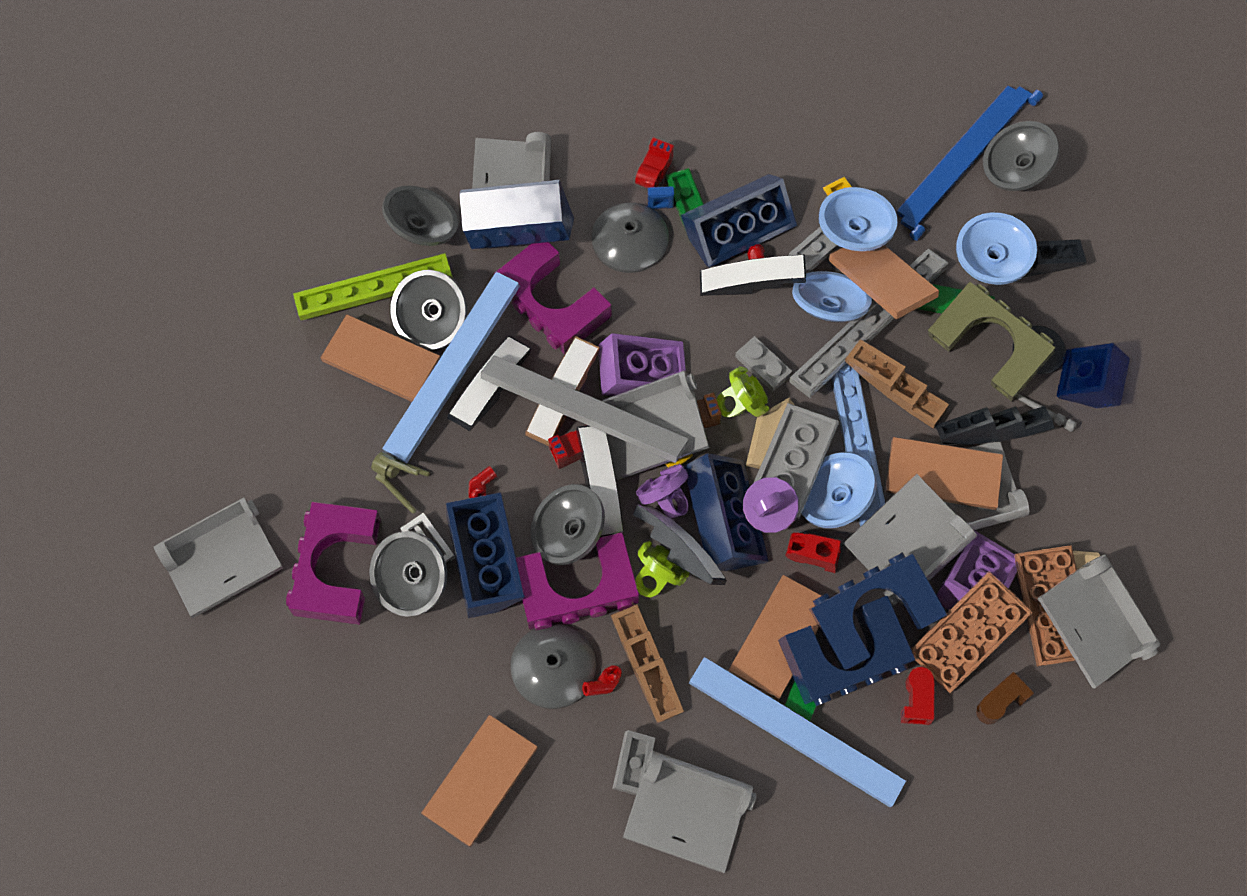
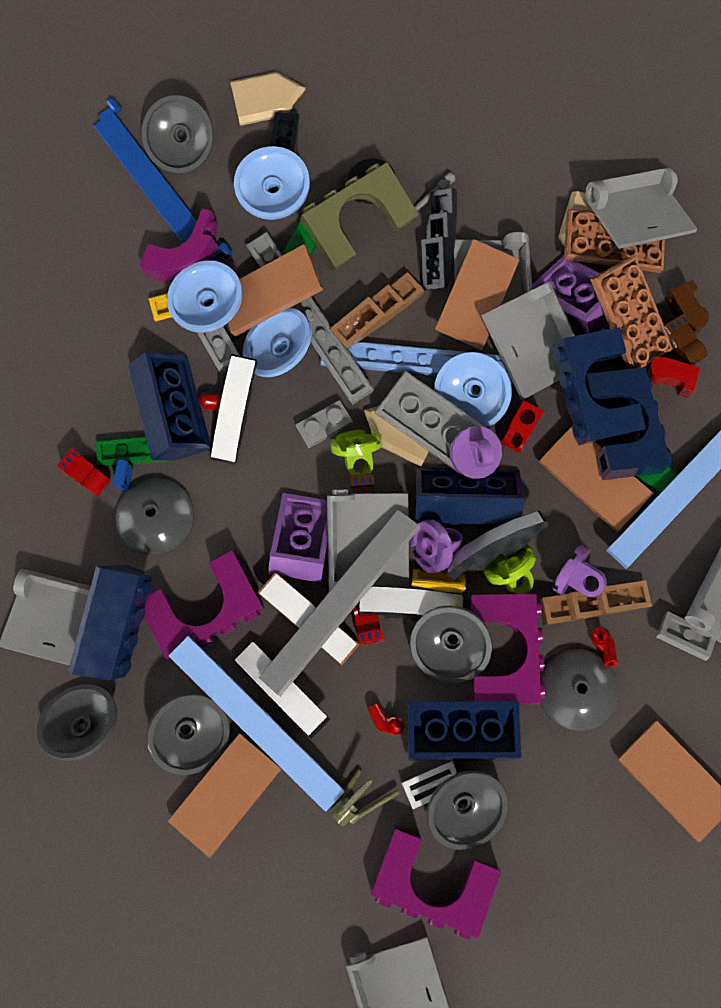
camera: 75 degrees left, 10 degrees up
(362, 288) = (140, 792): lime plate -> none
(628, 502) = (437, 581): none -> yellow tile
(670, 628) = (575, 574): none -> medium lavender tile
(905, 201) = (168, 263): none -> magenta arch
(962, 701) = (684, 341): none -> reddish brown leg
(1094, 375) = (411, 143): clear blue slope -> none
(1097, 228) = (263, 95): none -> tan tile

